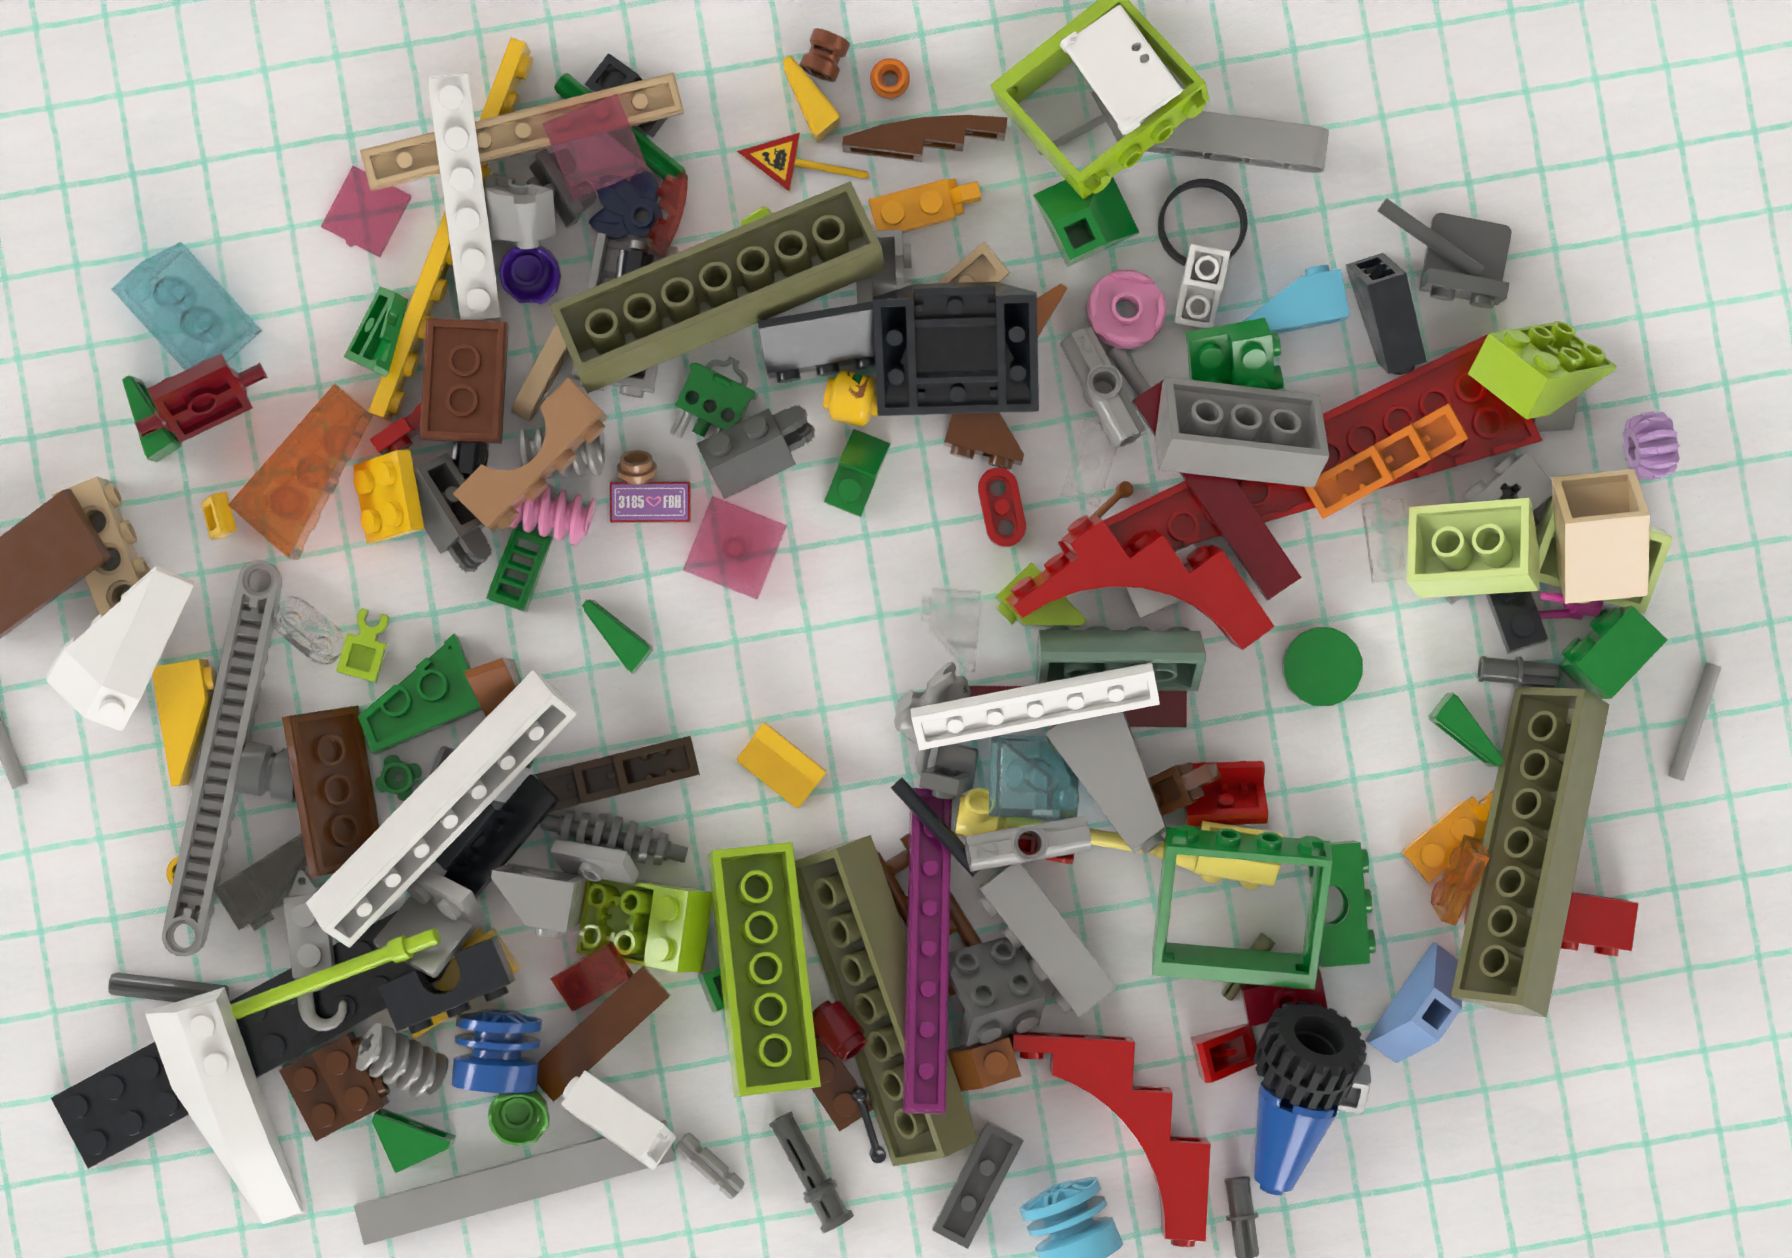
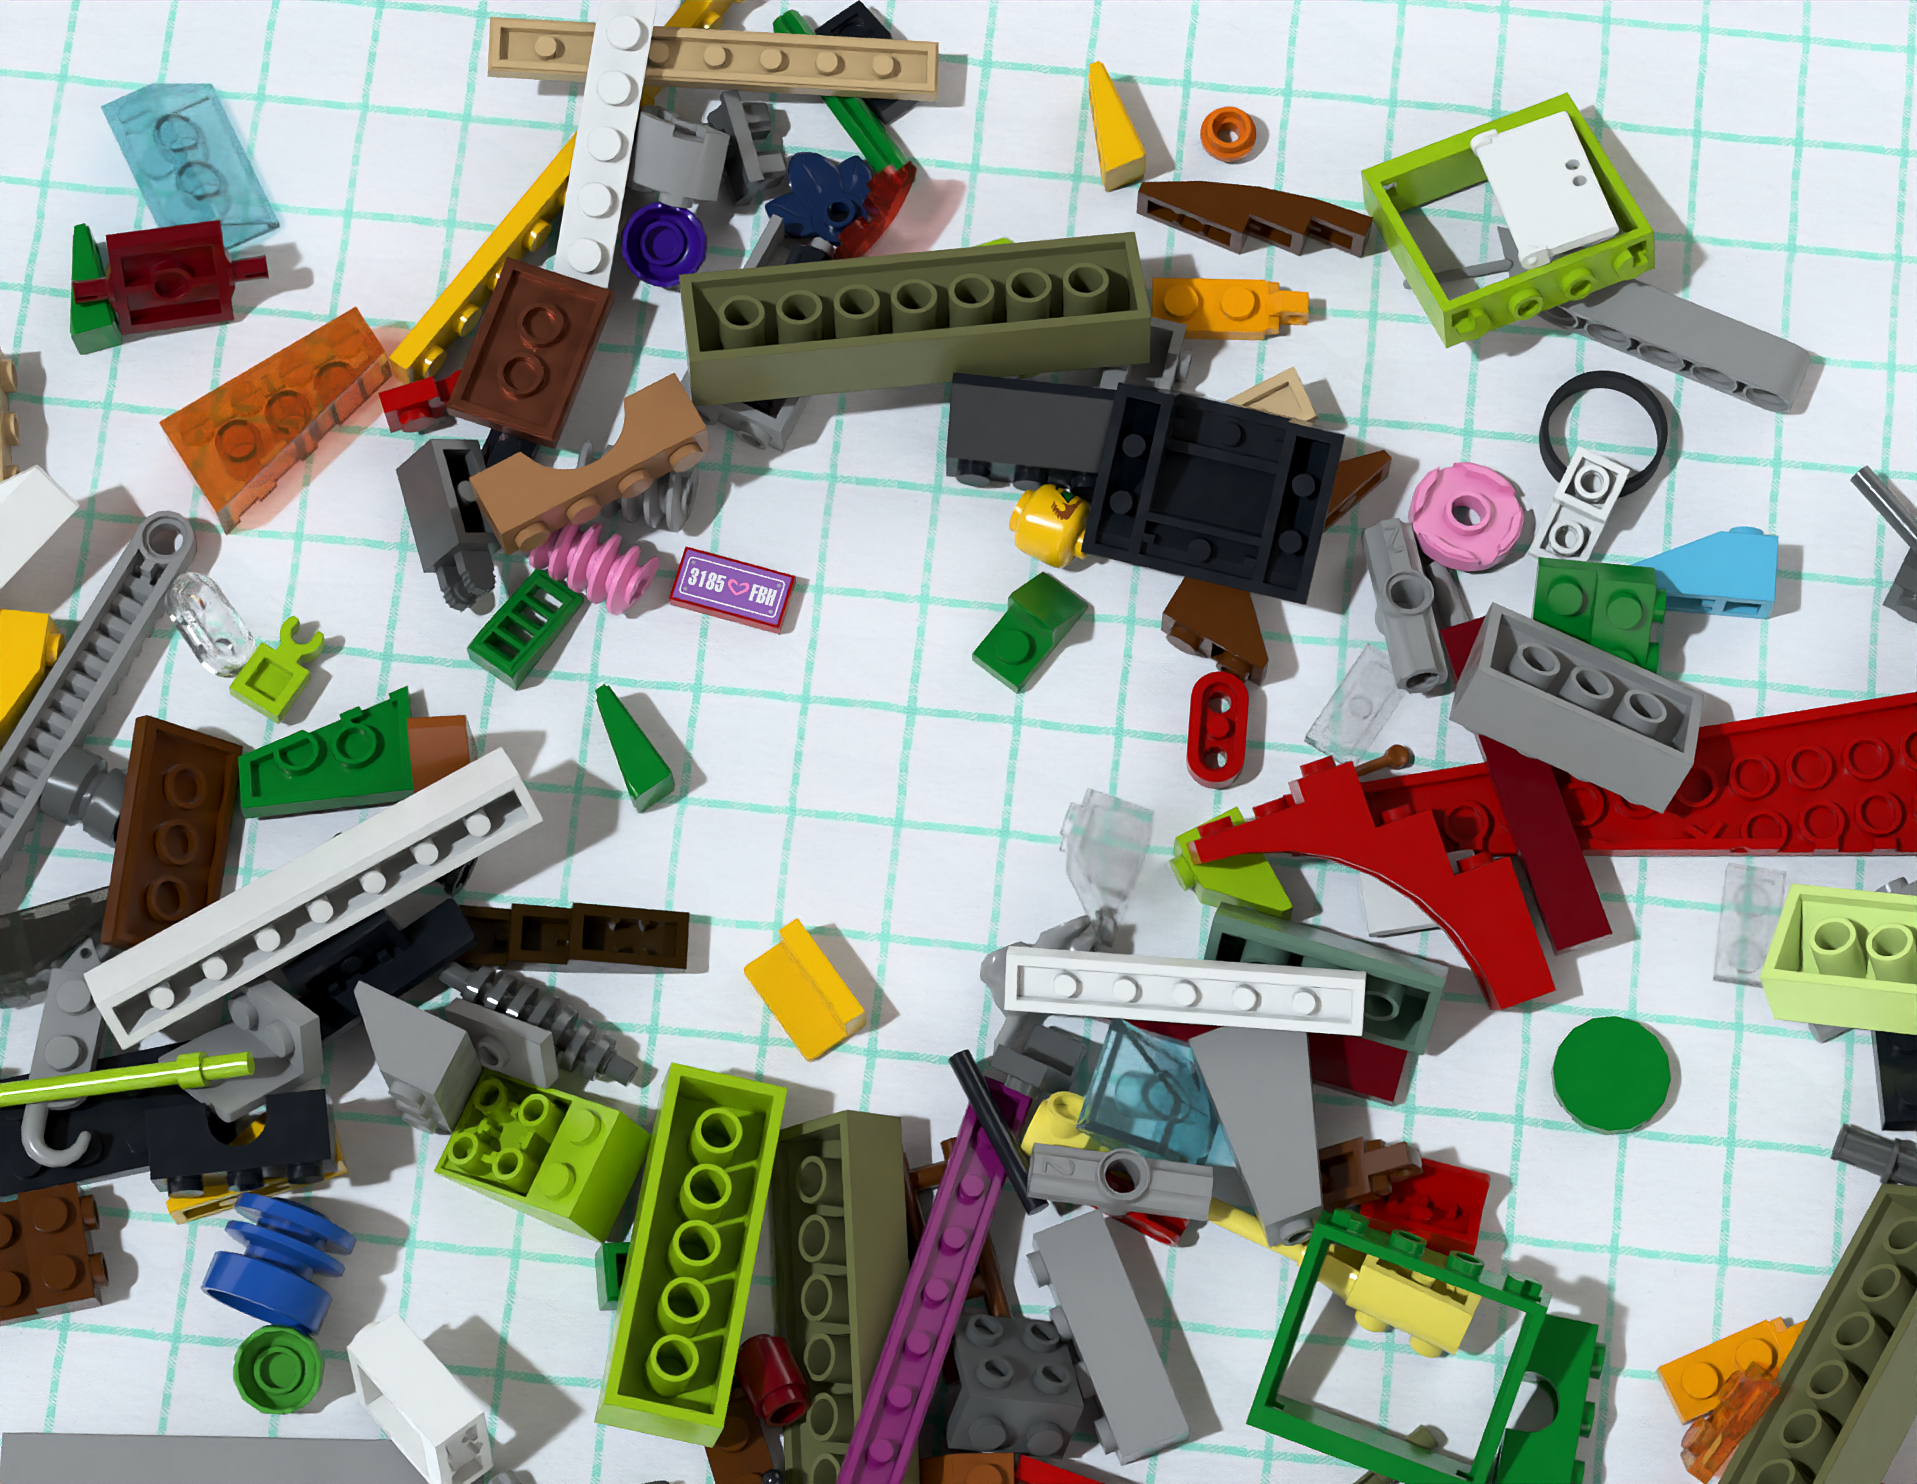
camera: 20 degrees right, 15 degrees down
(218, 516) = (139, 441): yellow tile -> none
(365, 215) = (470, 114): clear pink piece -> none
(378, 332) = (436, 263): green wing -> none
(387, 780) = (262, 842): green plate -> none
(388, 496) = (378, 475): yellow plate -> none
(401, 1060) = (141, 1237): light grey piece -> none
(408, 1140) = (111, 1364): green slope -> none
(541, 376) = (655, 361): tan beam -> none
(592, 976) = (445, 1201): clear red slope -> none
(594, 146) = (804, 102): clear pink tile -> none
(600, 1032) = (437, 1280): reddish brown slope -> none
(636, 467) = (728, 536): medium nougat plate -> none
(716, 387) = (864, 461): green piece -> none
(735, 547) = (830, 681): clear pink plate -> none
(755, 448) = (899, 552): dark grey hinge -> none
(779, 158) = (1047, 196): piece -> none
(824, 55) = (1149, 78): copper wheel -> none
(1085, 225) = (1442, 387): green slope -> none
(1387, 313) = (1829, 620): black slope -> none
(1387, 460) = (1774, 809): orange slope -> none
(1460, 725) = (1789, 1214): green slope -> none

